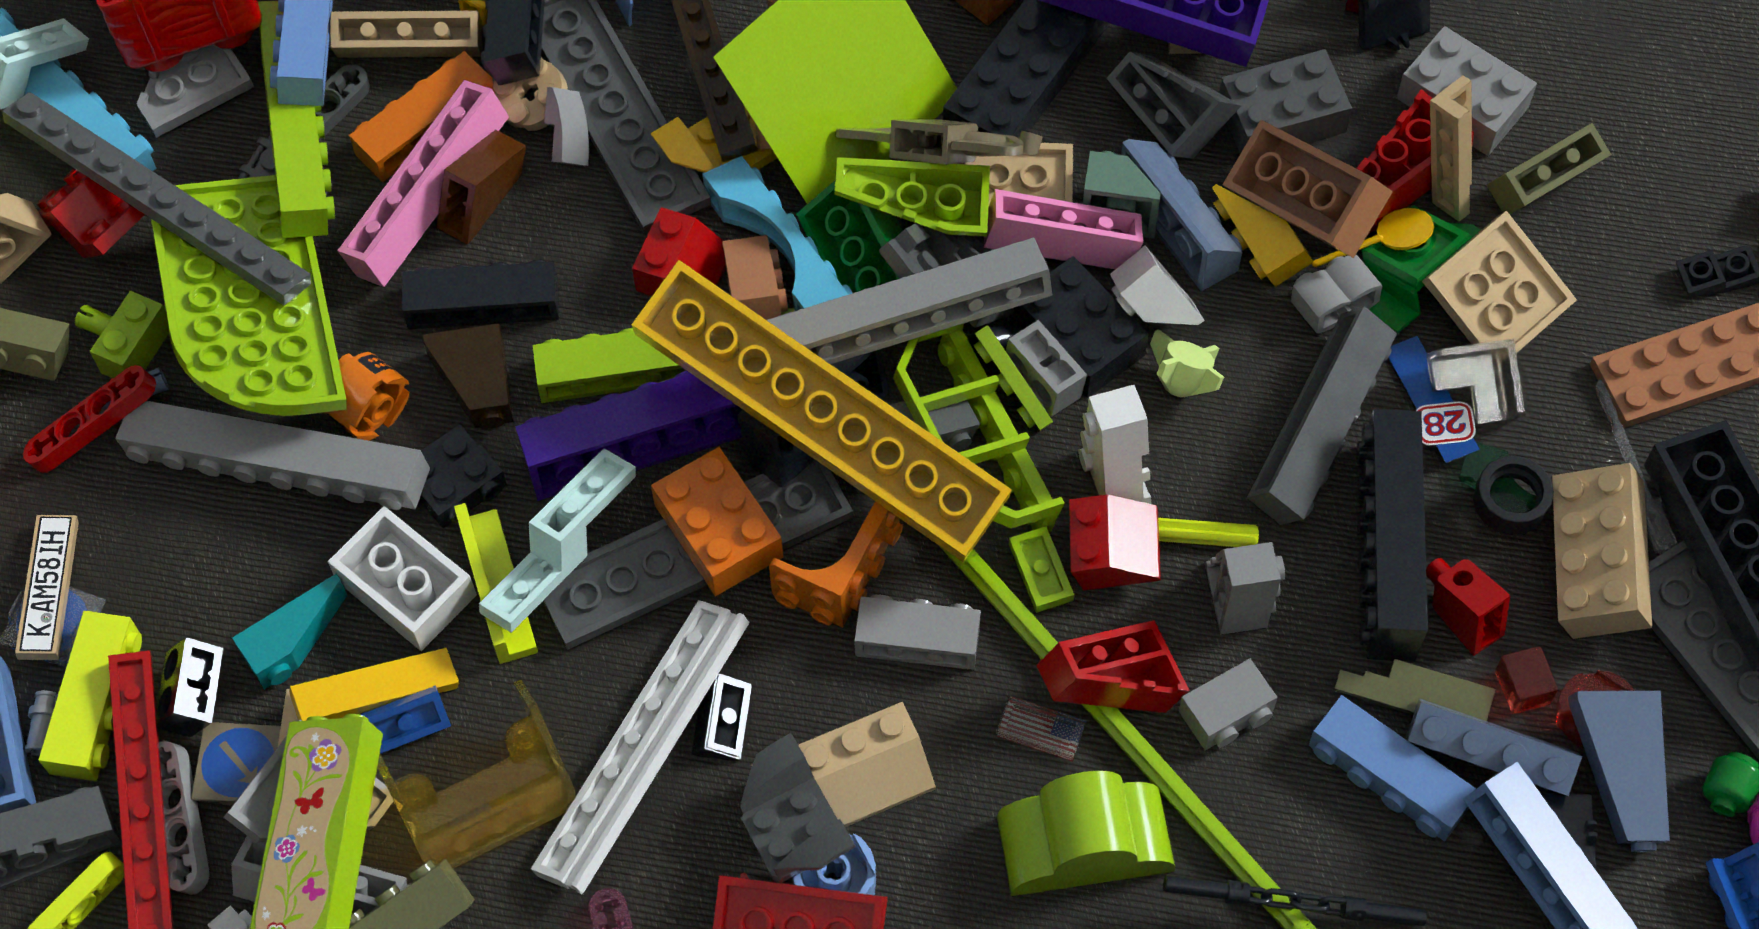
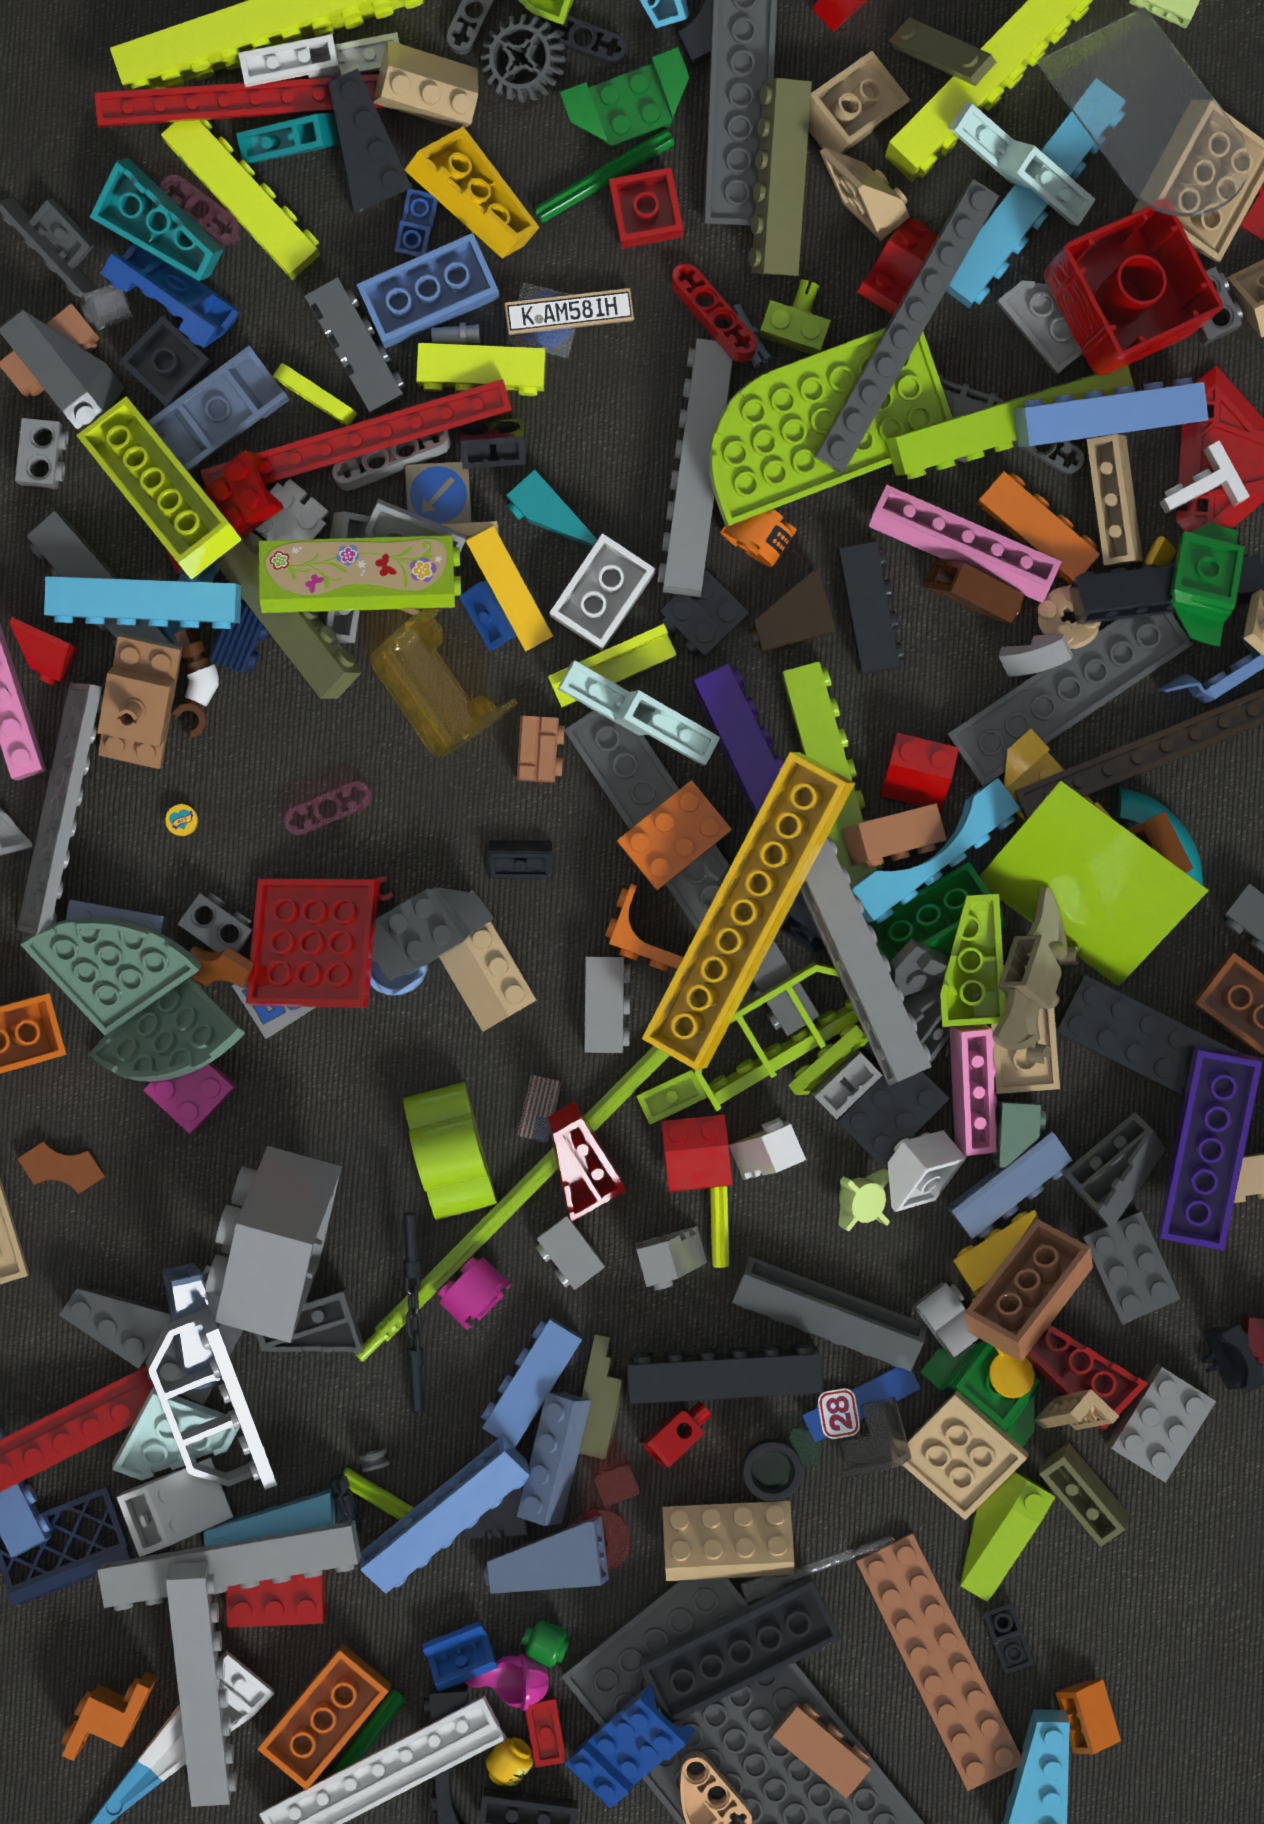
camera: 80 degrees right, 25 degrees up
(584, 676) = (539, 749): none -> nougat brick
(639, 747) = (487, 802): white plate -> none
(1273, 820) = (473, 1292): none -> dark pink brick
(1594, 261) = (1002, 1531): none -> lime wedge

